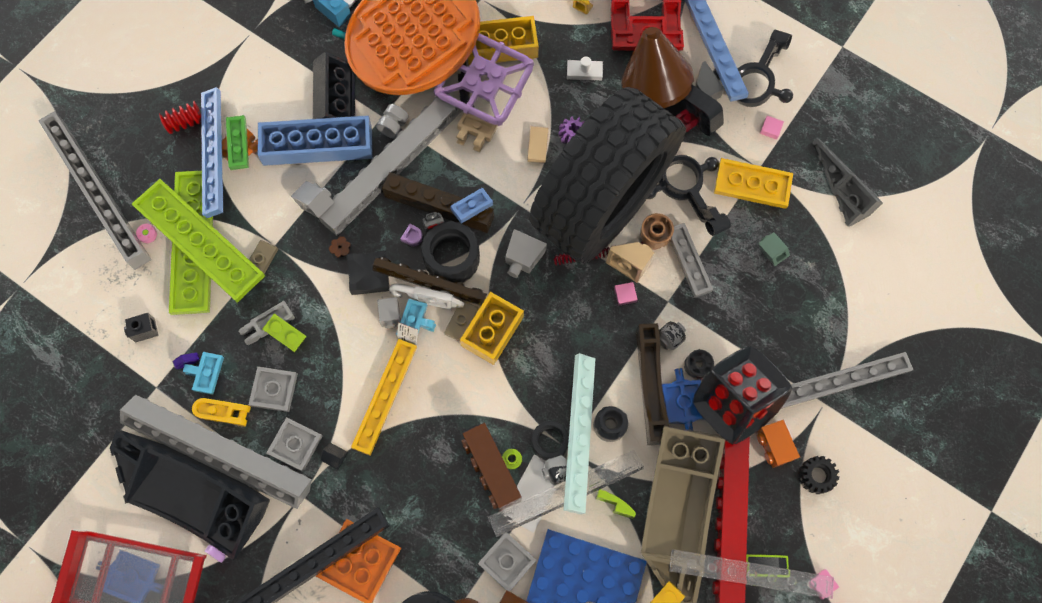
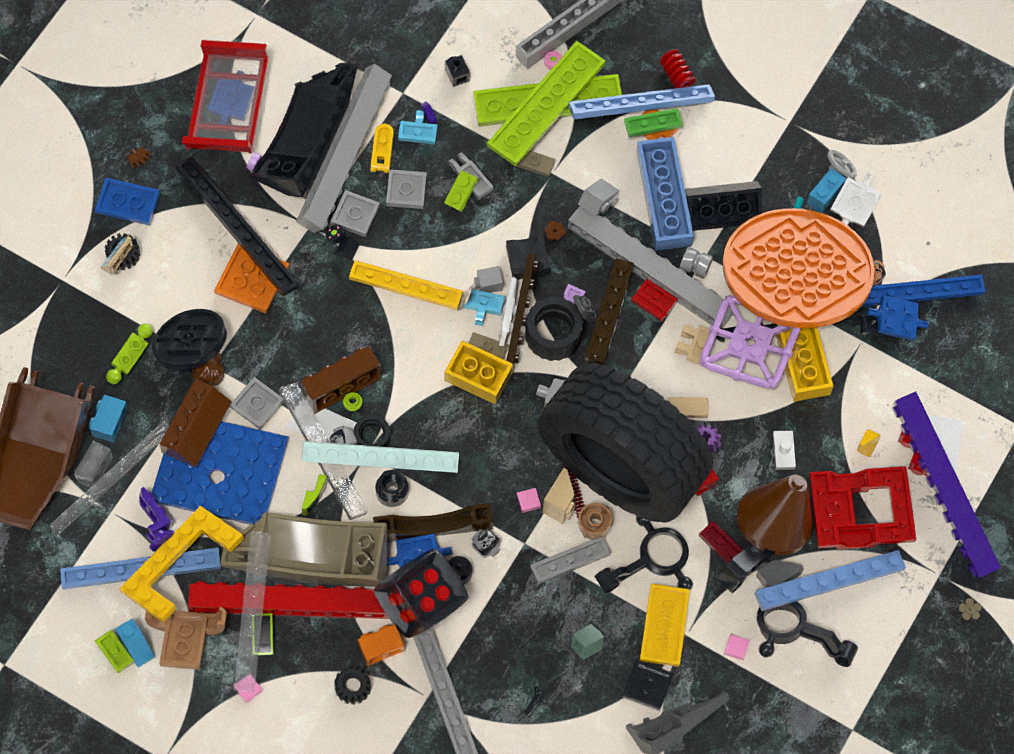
camera: 85 degrees right, 5 degrees down
(316, 467) = (335, 234): none -> black tile
(426, 162) = (654, 300): none -> red plate
(471, 205) = (600, 337): medium blue plate -> none
(809, 204) = (647, 685): none -> black tile
(829, 303) = (535, 702): none -> black bar

